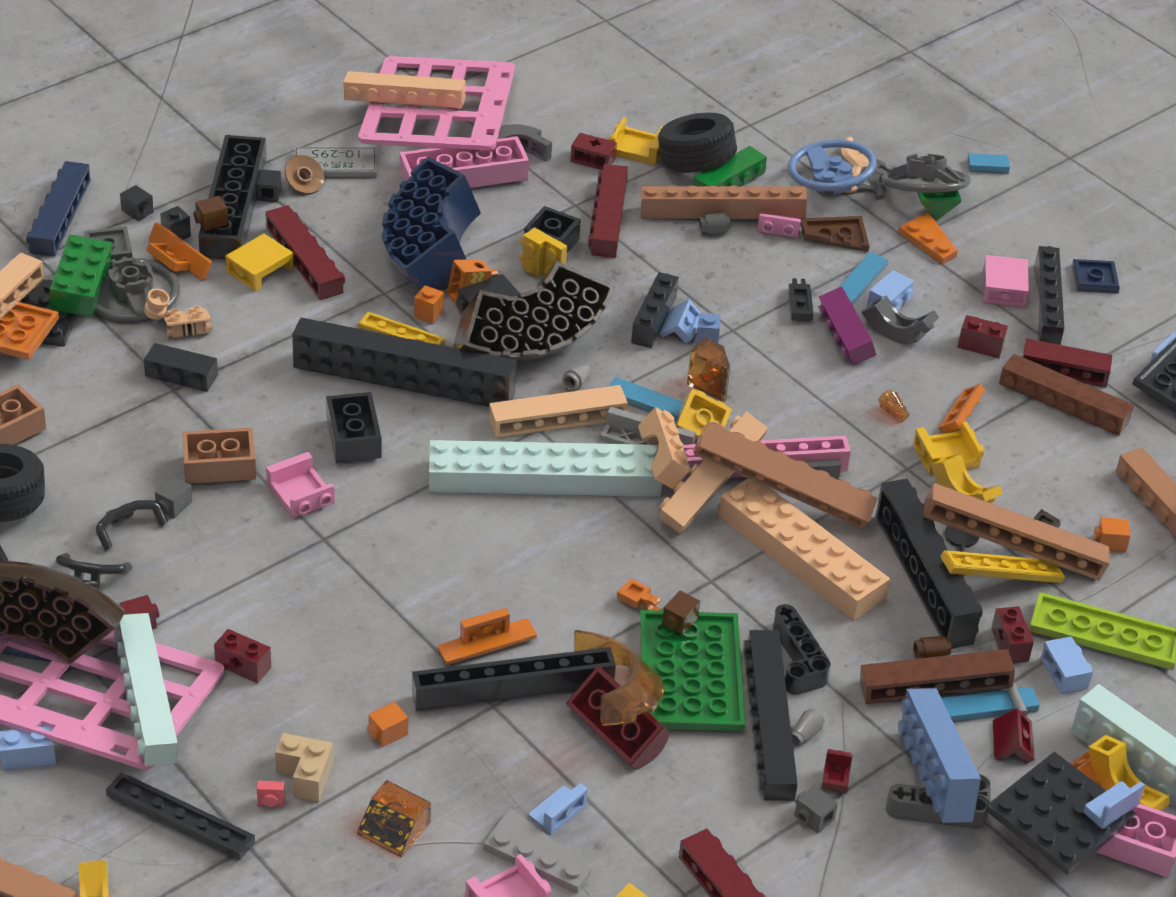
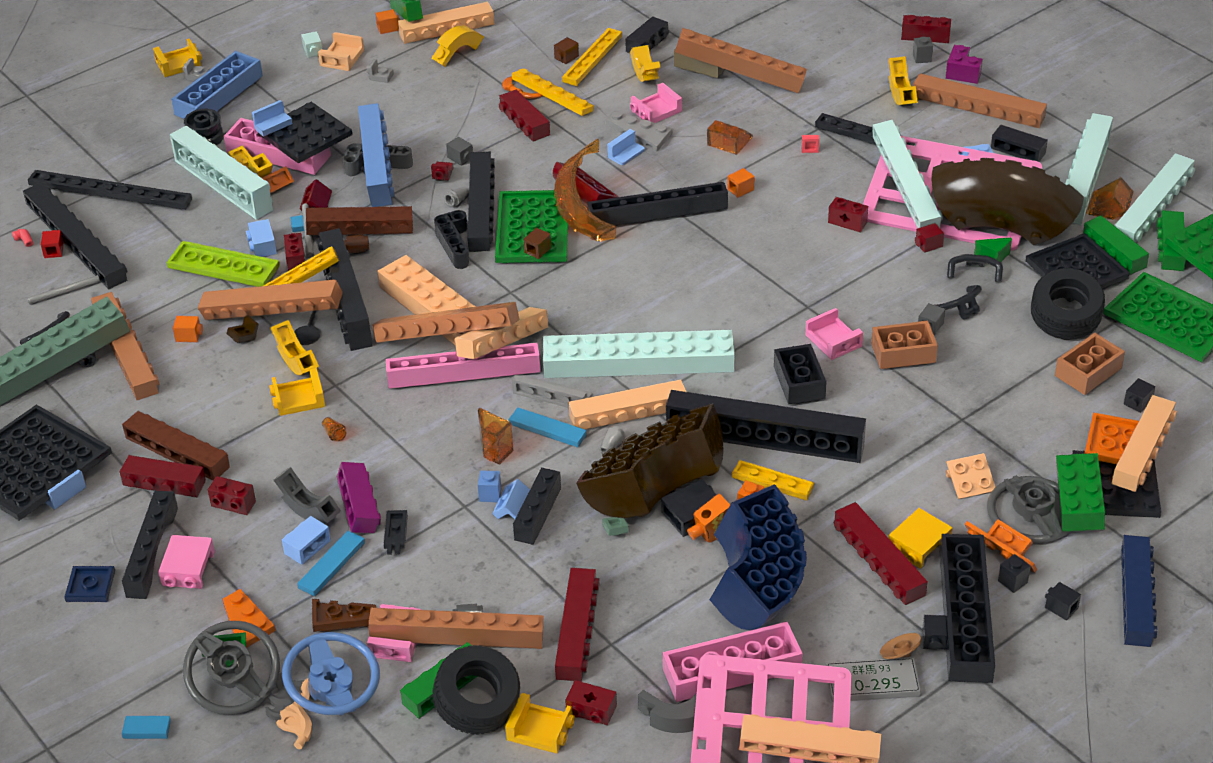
camera: 175 degrees left, 0 degrees up
(118, 236) = (1072, 552): dark grey plate -> none
(156, 304) = (1000, 471): light nougat wheel -> none
(181, 367) = (960, 427): black brick -> none
(211, 213) = (976, 544): reddish brown brick -> none
(307, 762) = (790, 158): tan brick -> none
(485, 635) = (677, 236): orange bracket -> none
(540, 252) = (644, 546): yellow plate -> none
(556, 225) = (636, 580): black brick -> none
(638, 594) = (568, 270): orange plate -> none
(670, 461) = (542, 361): light nougat arch -> none
(701, 409) = (504, 398): yellow plate -> none
(961, 409) = (274, 427): orange plate -> none

